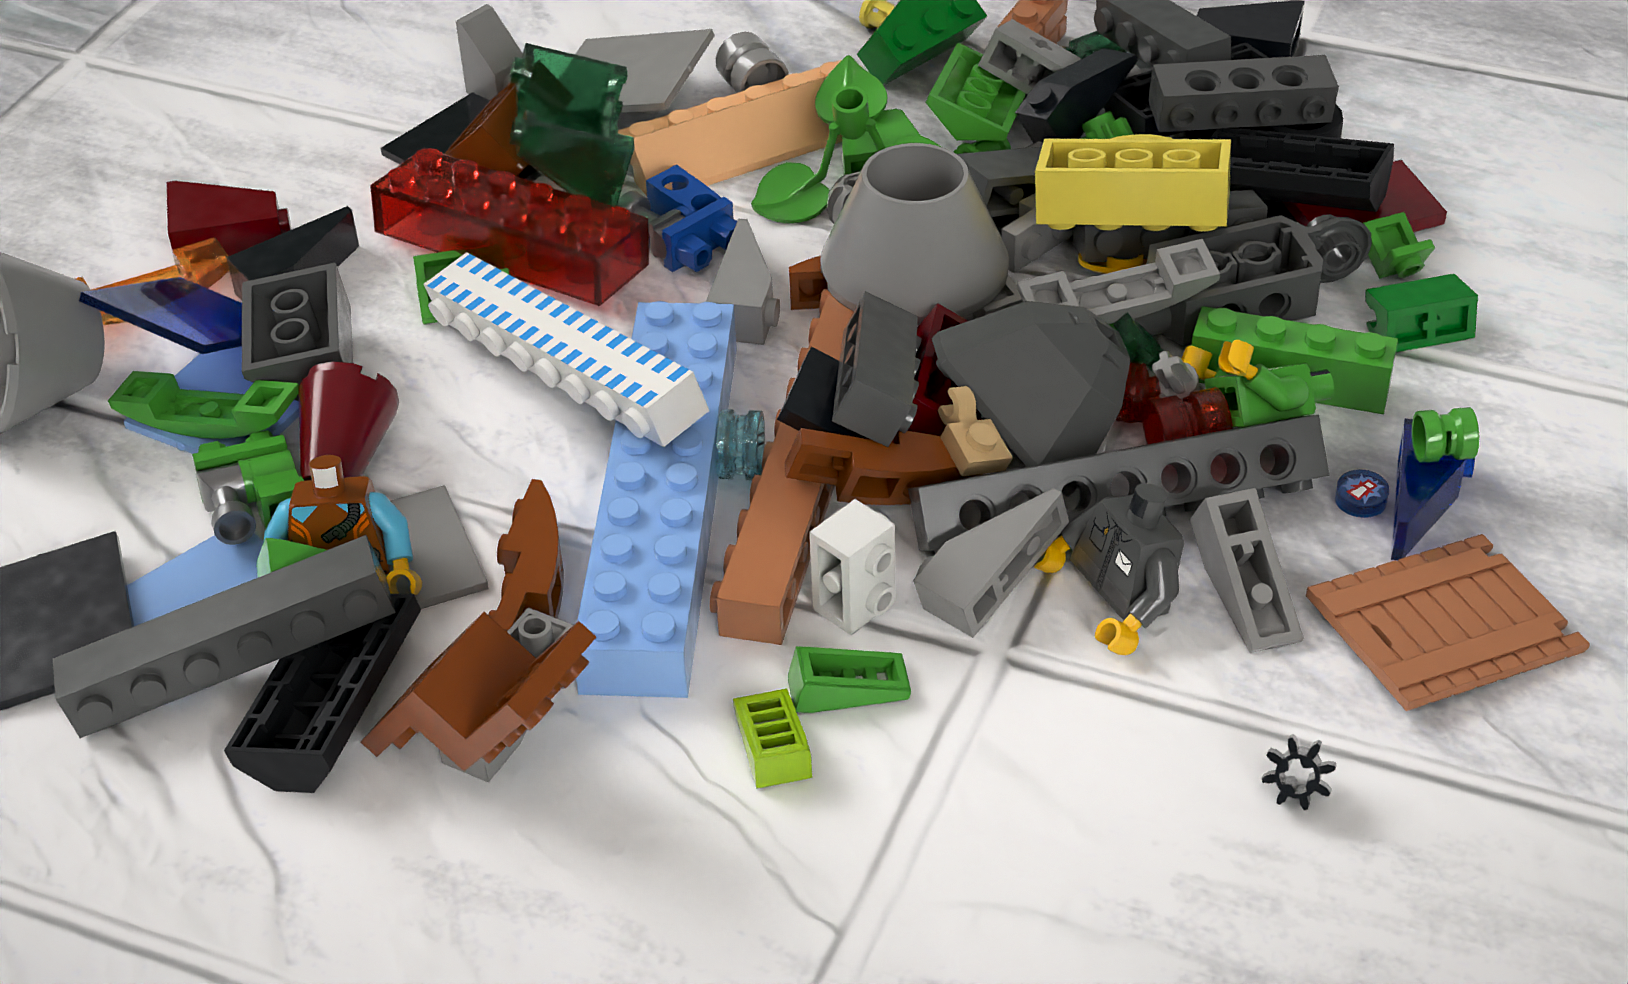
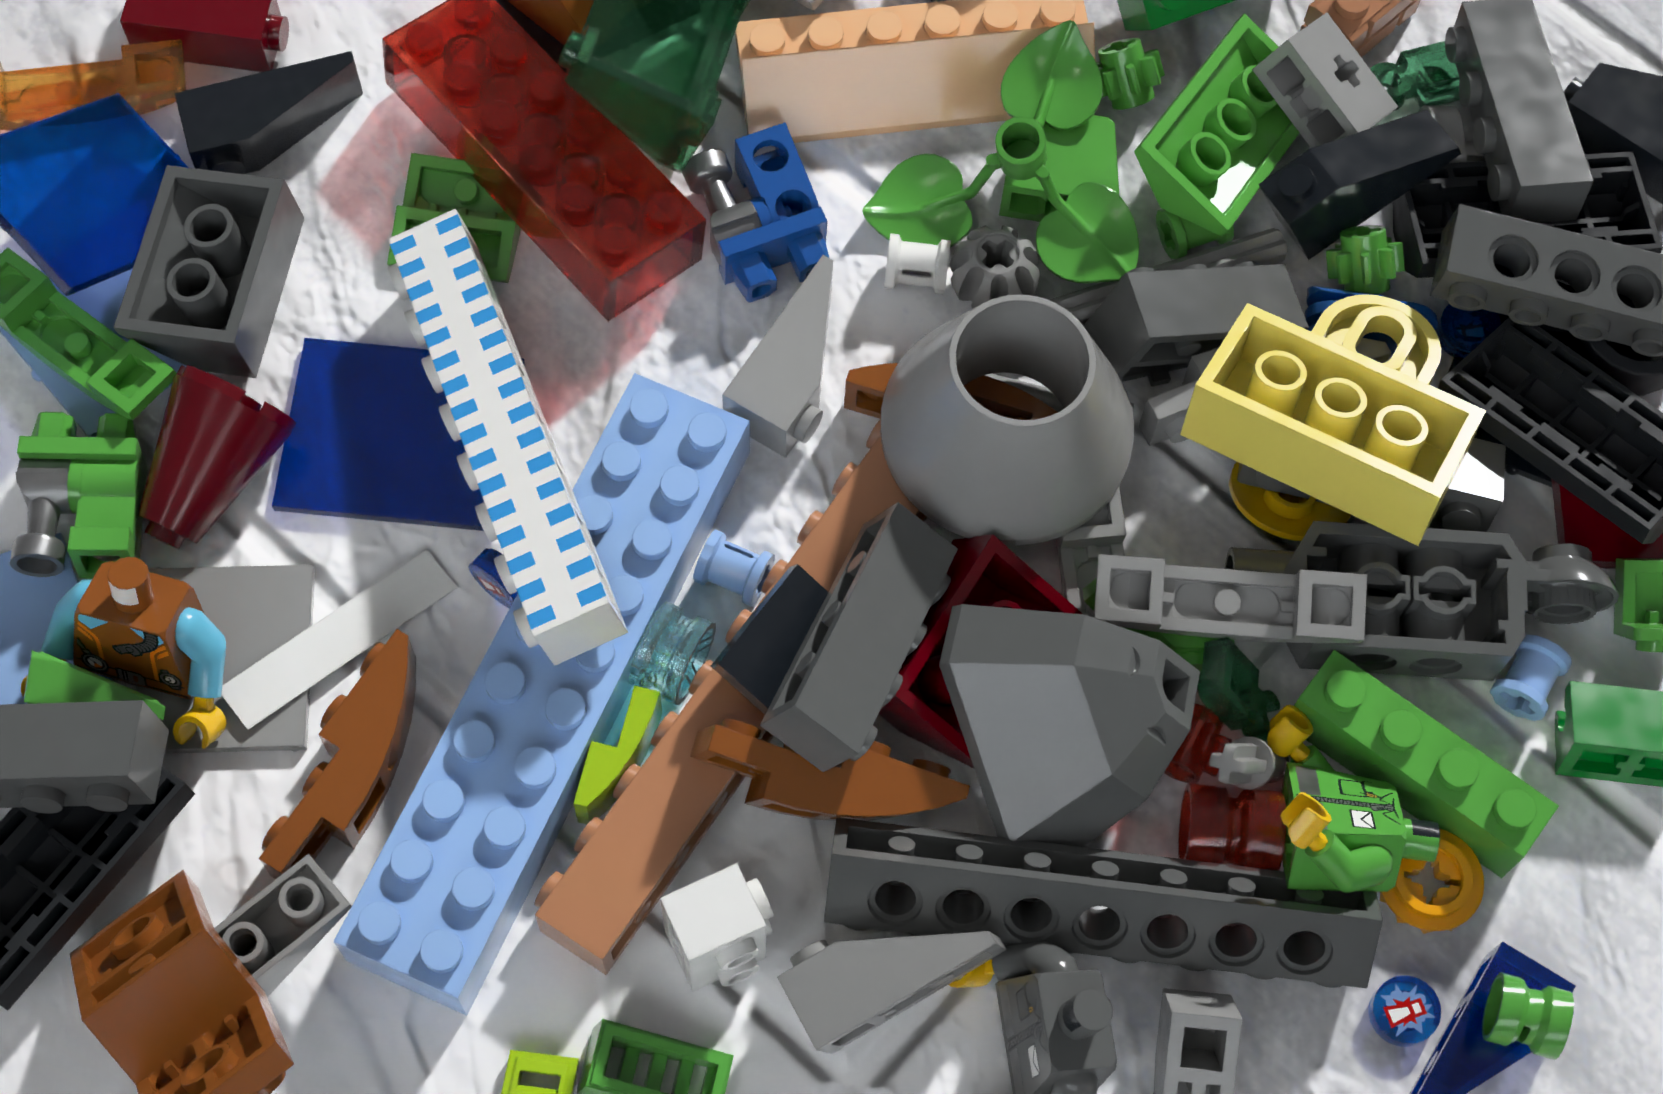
camera: 15 degrees right, 25 degrees up
(472, 409) = (371, 440): none -> clear blue piece
(479, 521) = (336, 639): none -> white sticker
(589, 446) = (486, 574): none -> clear blue tile
(725, 509) = (608, 763): none -> lime slope
(758, 395) = (733, 567): none -> light blue bush
(819, 223) = (917, 264): none -> white bush
(900, 90) = (1129, 73): none -> bright green gear
(971, 442) = (939, 788): tan plate -> none
(1339, 298) = (1531, 677): none -> light blue bush
(1348, 411) = (1448, 906): none -> light orange gear

